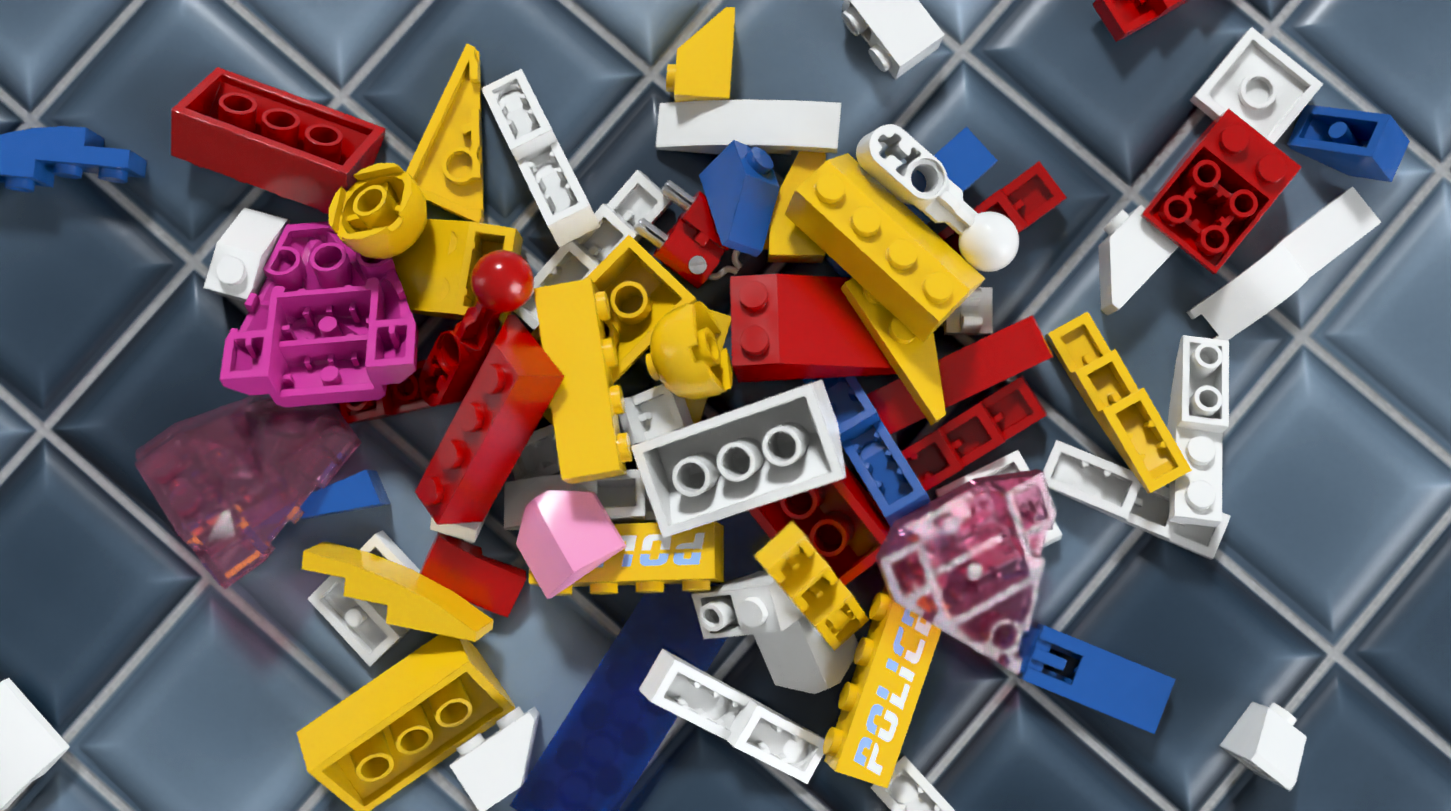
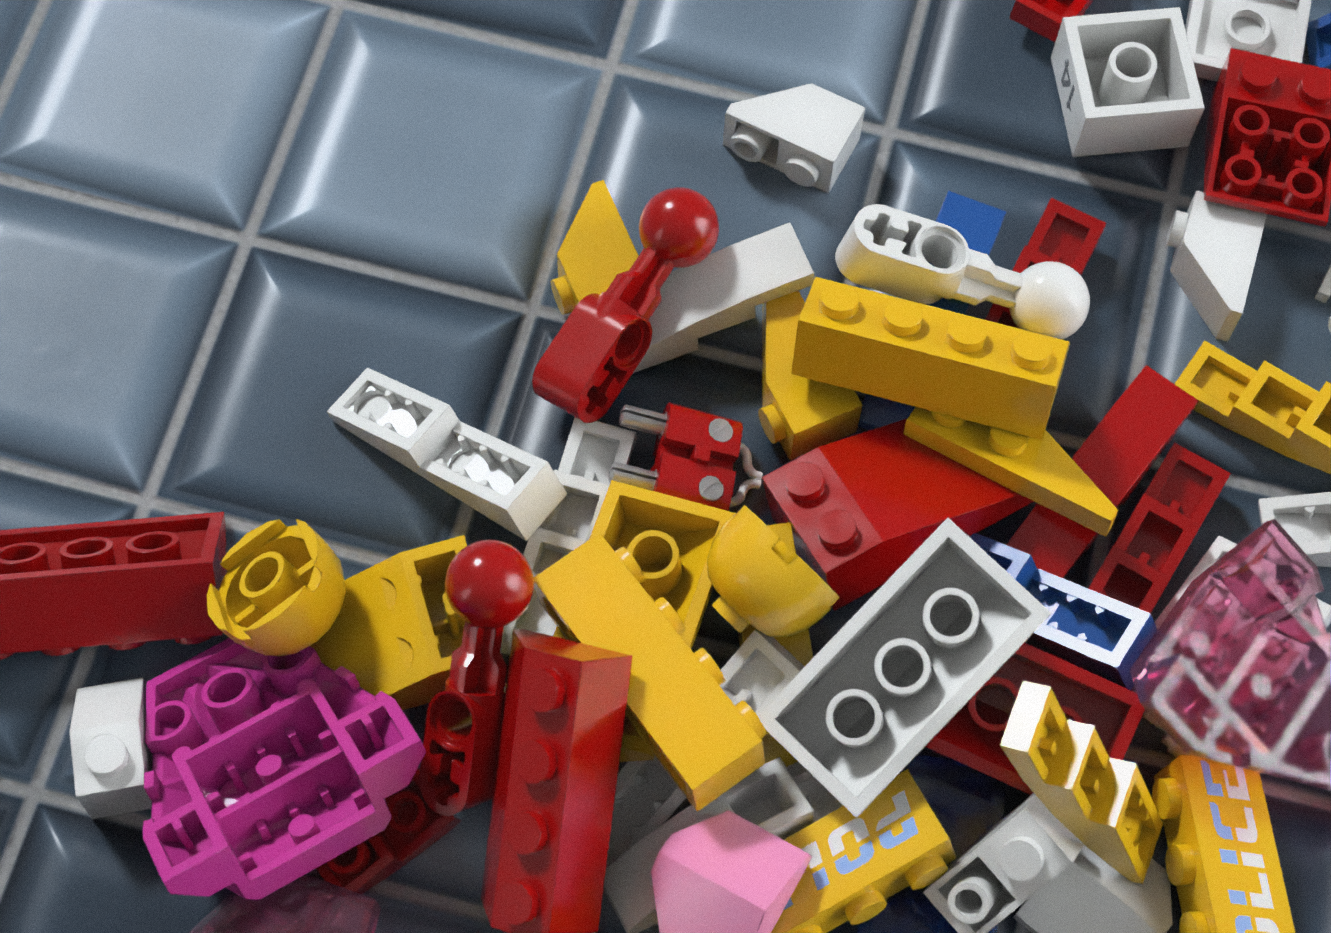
camera: 30 degrees left, 20 degrees down
(450, 151) = (325, 482): yellow wing -> none
(683, 122) = (611, 329): none -> red beam
(741, 196) = (724, 379): blue slope -> none
(973, 315) = (1074, 407): white tile -> none
(1143, 96) = (1126, 82): none -> white brick

